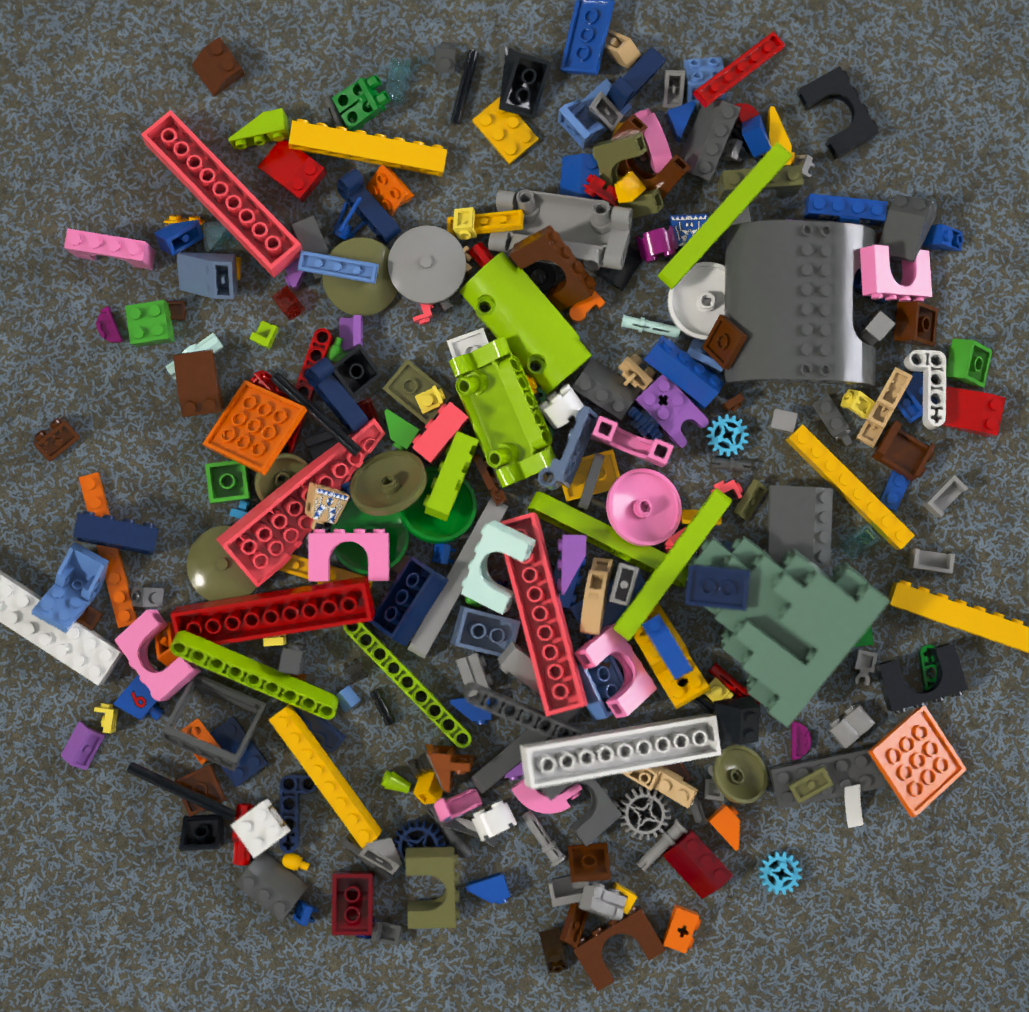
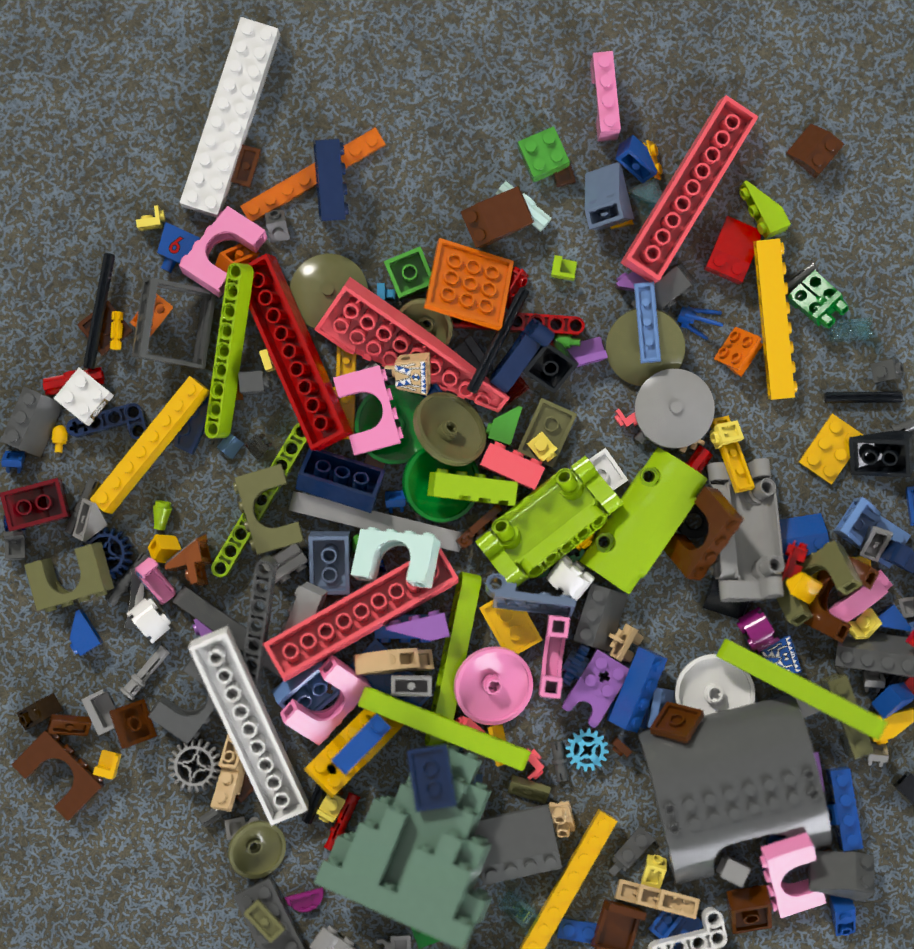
camera: 80 degrees right, 0 degrees up
(56, 438) = (407, 94): reddish brown bracket -> none
(74, 588) = (266, 154): medium blue bracket -> none
(82, 746) = (117, 203): medium lavender panel -> none
(108, 327) = (530, 114): magenta tile -> none
(202, 833) = (64, 341): black slope -> none
(205, 779) = (116, 330): none -> yellow axle
(229, 738) = (163, 343): dark blue plate -> none
(288, 303) = (600, 282): clear red bracket -> none
(369, 210) = (712, 339): dark blue beam -> none
(382, 707) = (227, 485): black axle -> none
(393, 689) = (250, 488): none -> olive arch
(424, 765) = (187, 536): clear smoke wheel -> none
(470, 711) = (247, 571): blue slope -> none
(539, 803) = (178, 657): bright pink arch -> none
(581, 309) = (669, 570): orange leg -> none
(591, 480) = (512, 627): dark grey beam -> none
(603, 902) = (98, 747): light grey brick -> none
(650, 326) = (674, 644): light aqua pin -> none
(668, 838) = (175, 795): light grey pin -> none
(679, 142) = (865, 625): none -> light yellow bracket
(679, 917) = (102, 826): orange brick -> none
(697, 864) = (158, 830): dark red slope -> none
(727, 824) = (205, 849): orange slope -> none
(738, 719) = (309, 833): black slope -> none
(779, 880) = (171, 905): medium azure gear -> none
(783, 421) = (615, 801): light grey panel -> none
(786, 475) = (562, 818): none -> tan hips

